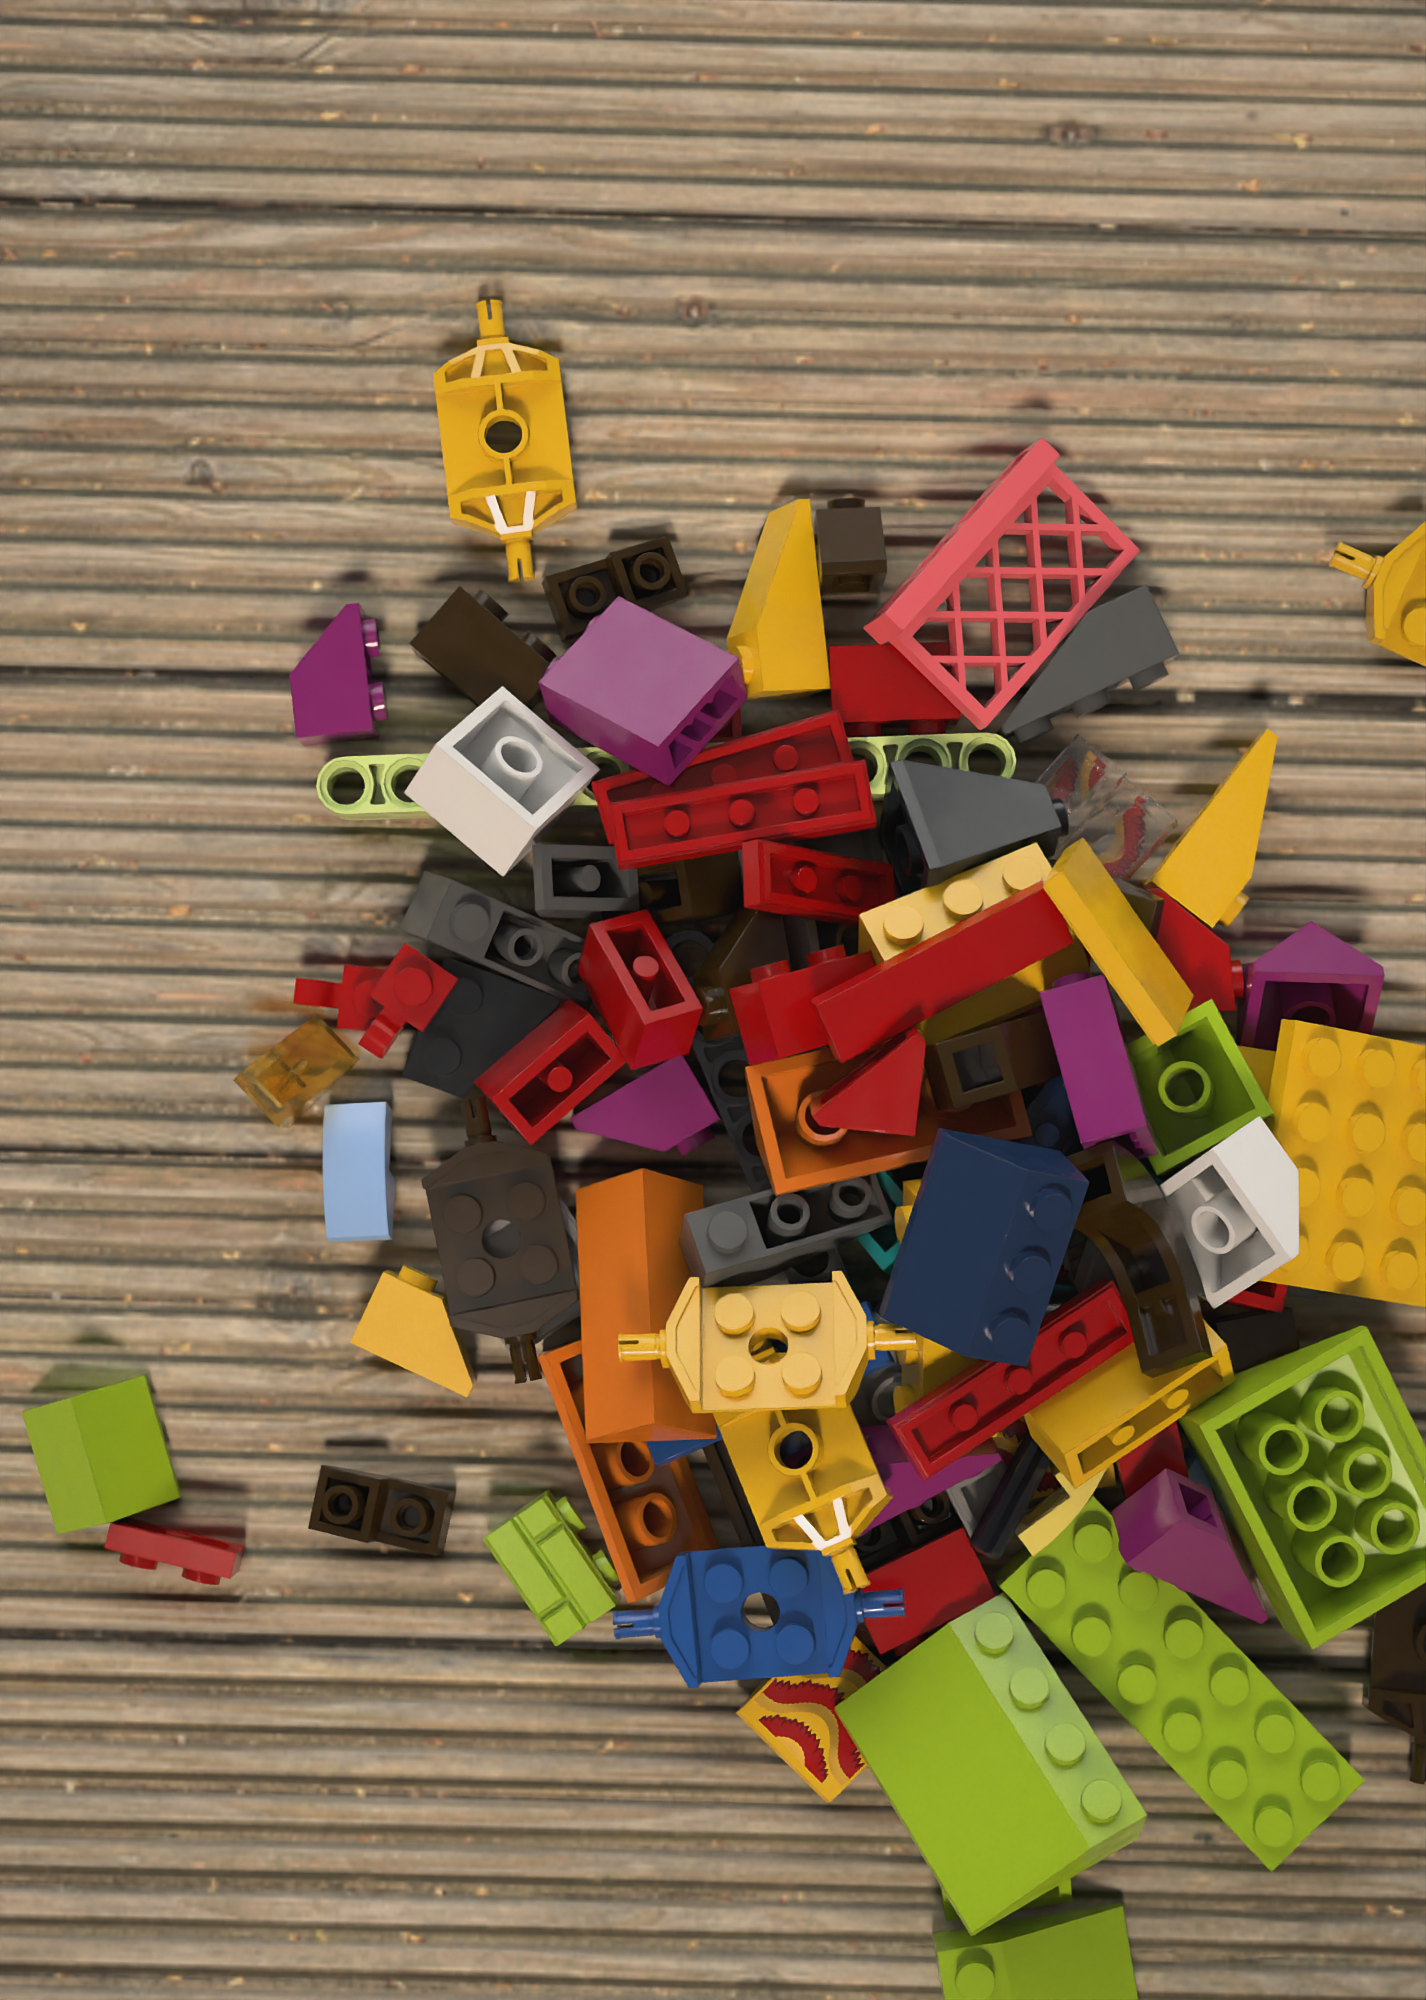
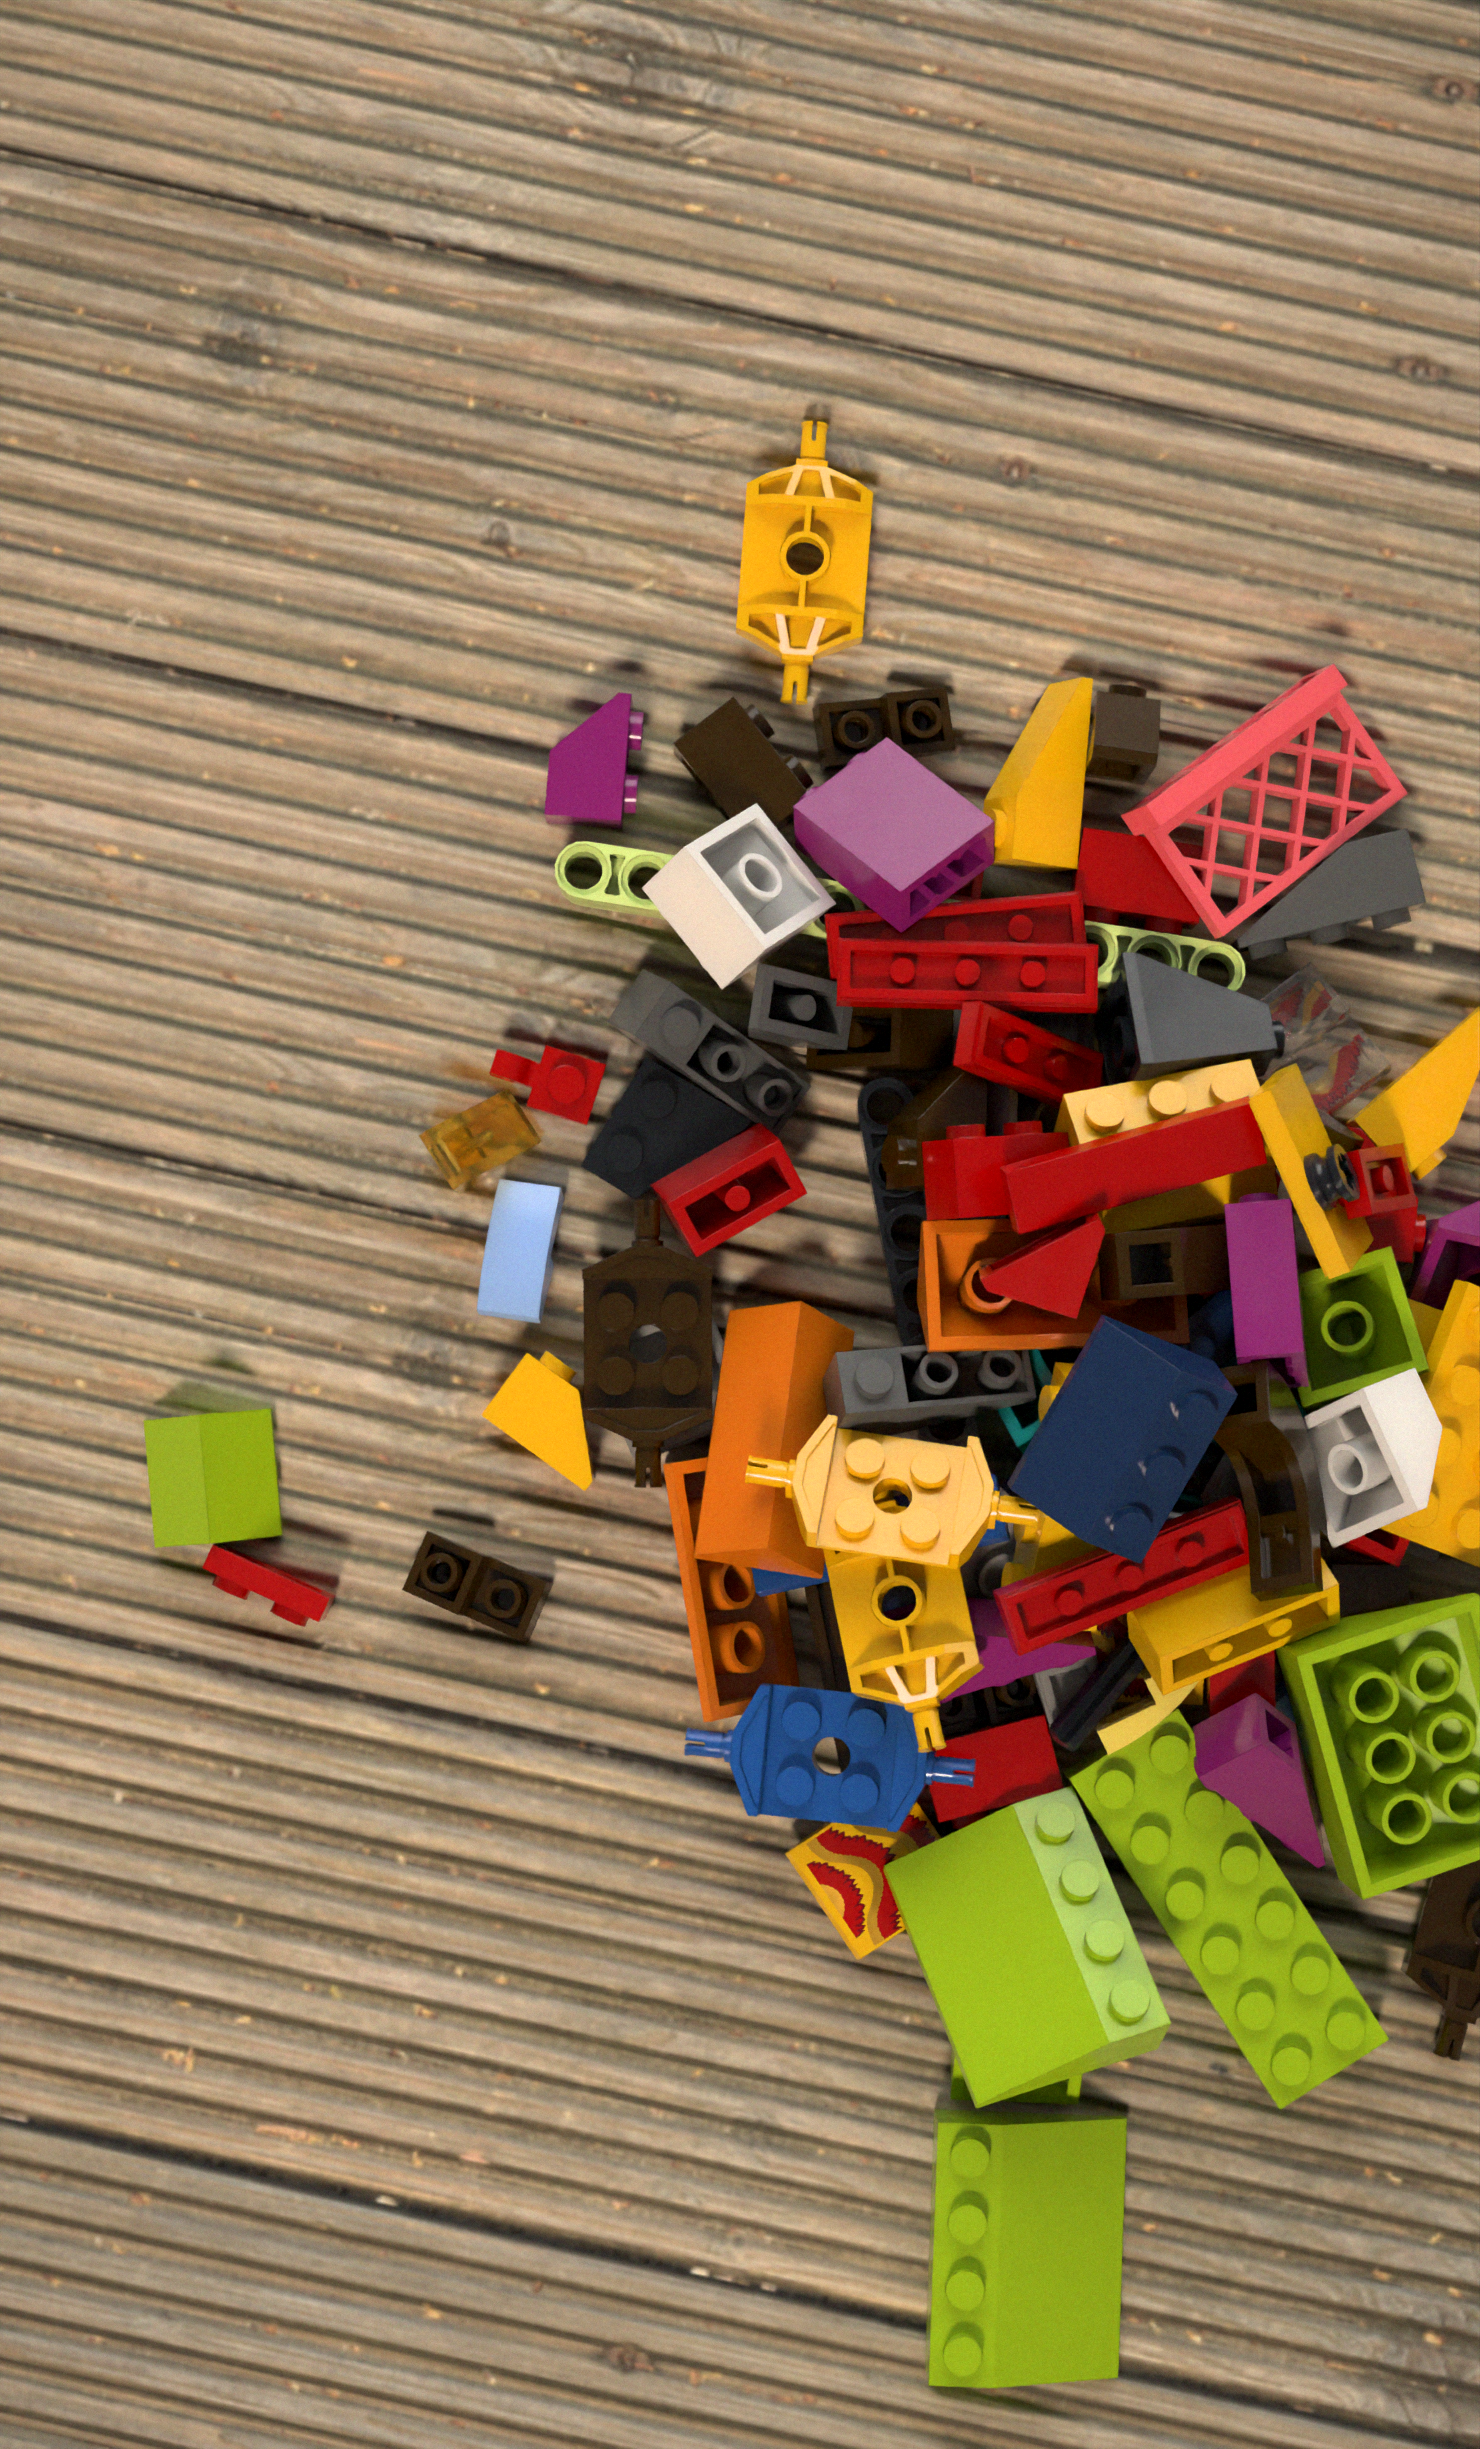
camera: 10 degrees right, 0 degrees up
(411, 993) = (606, 1086): red plate -> none
(554, 1566) = (636, 1674): lime brick -> none
(639, 989) = (832, 1126): red brick -> none
(654, 1111) = (822, 1248): magenta slope -> none
(1140, 945) = (1331, 1177): none -> black bush
(1182, 939) = (1382, 1181): none -> red plate

